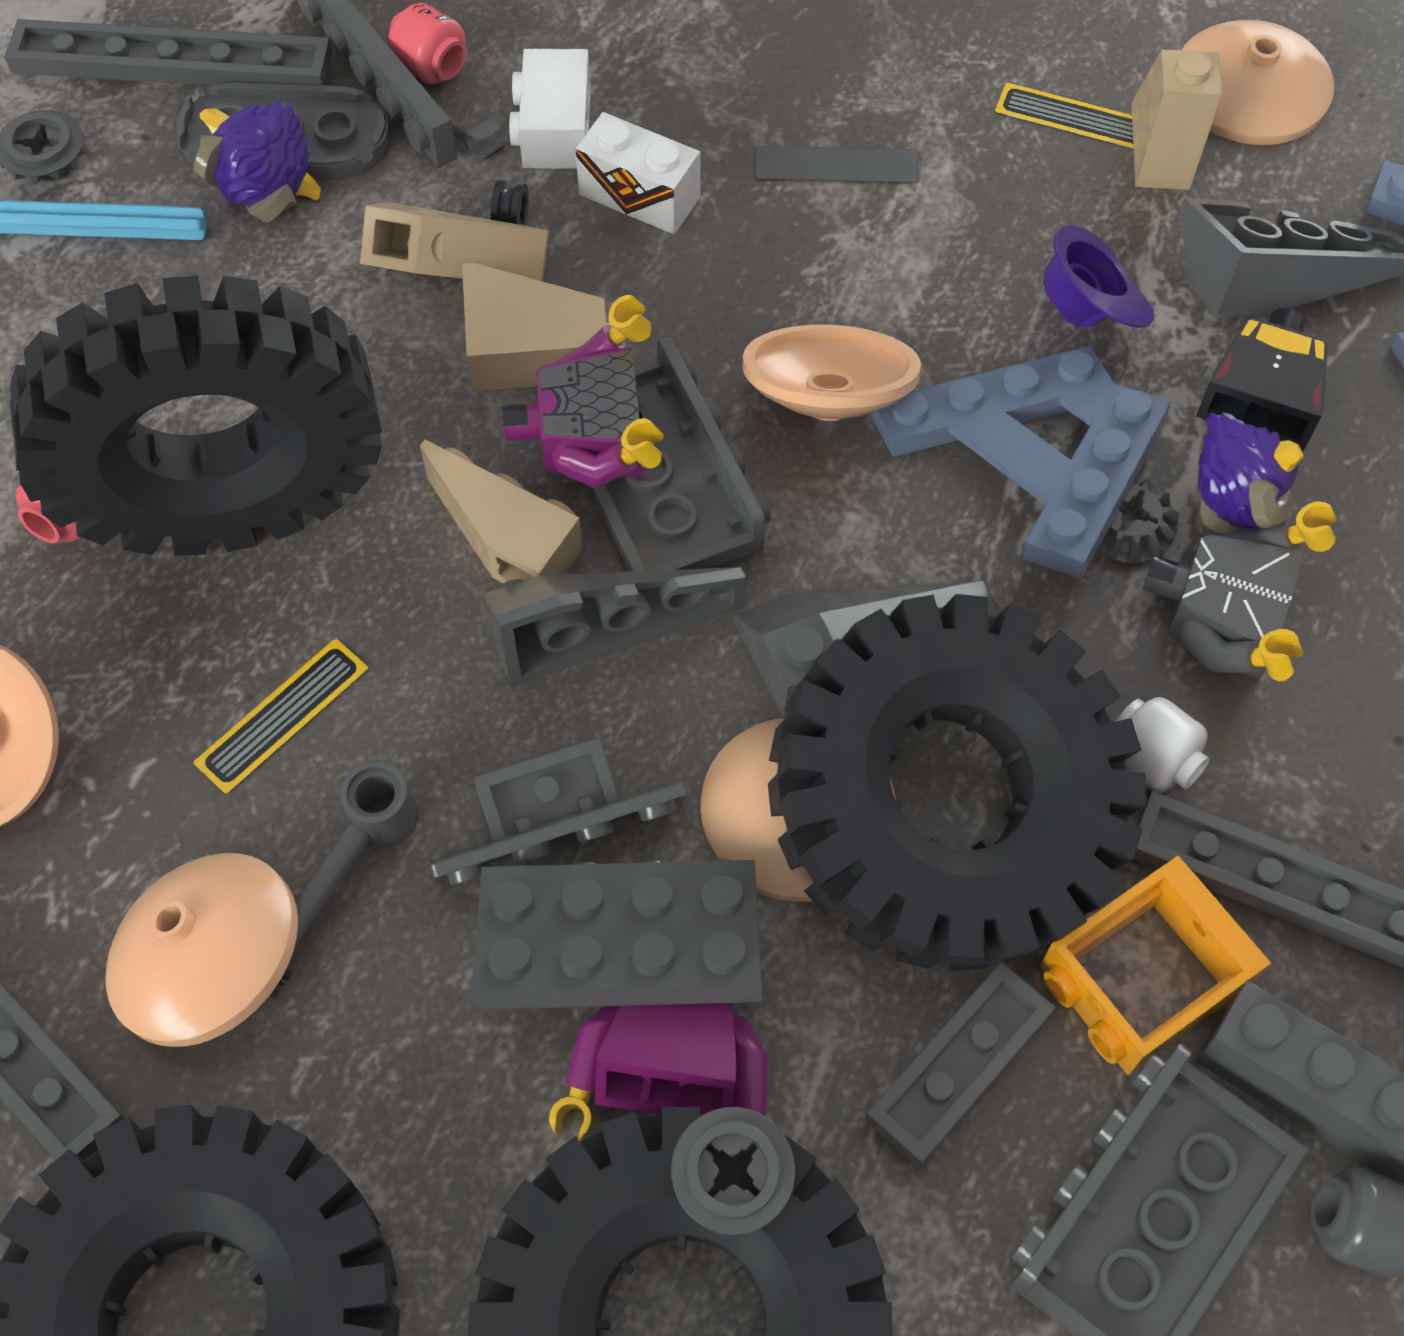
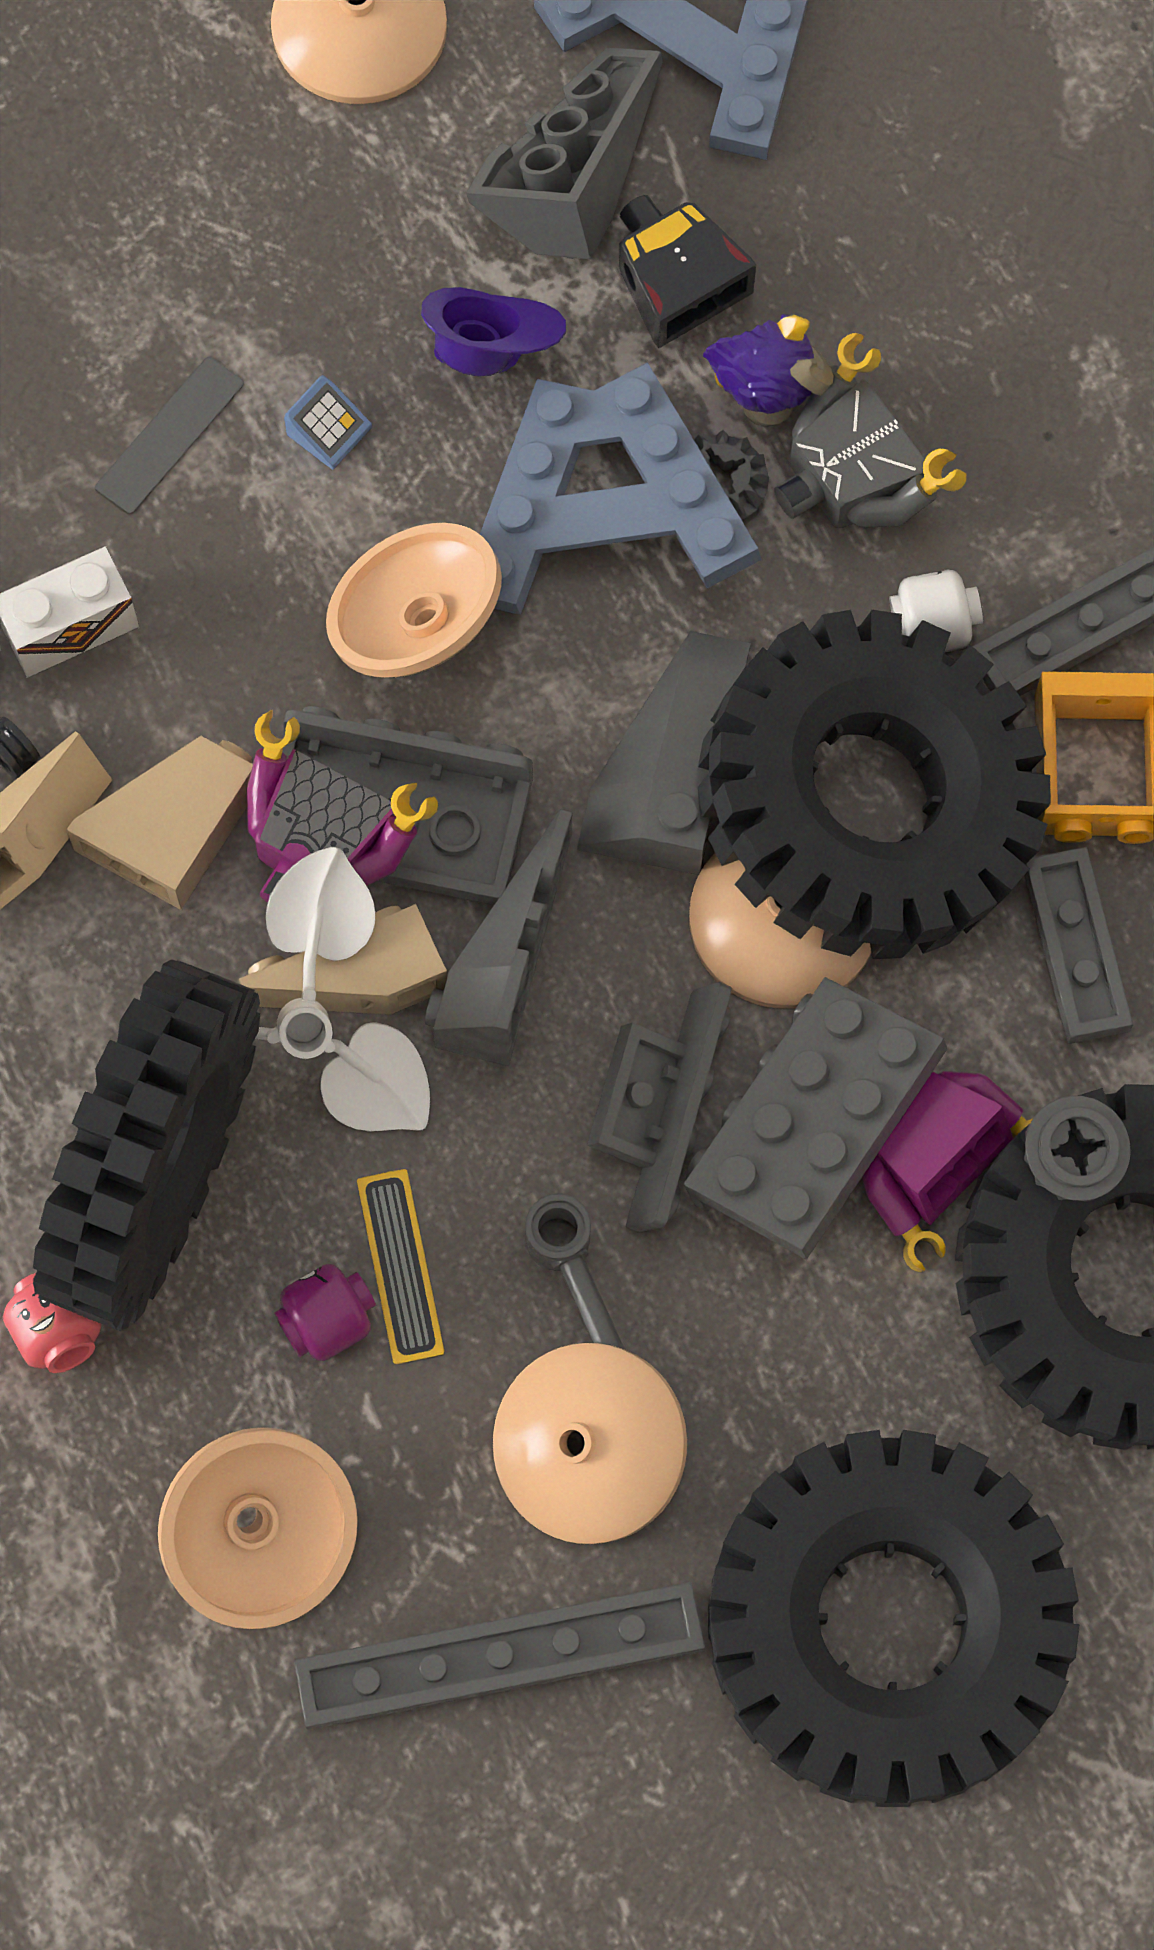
camera: 55 degrees left, 10 degrees up
(194, 678) = (325, 1312): none -> magenta head
(428, 591) = (380, 1075): none -> white plant
(930, 239) = (326, 422): none -> slope
(1066, 114) = (277, 196): sticker -> none
(1174, 117) = (376, 134): tan slope -> none

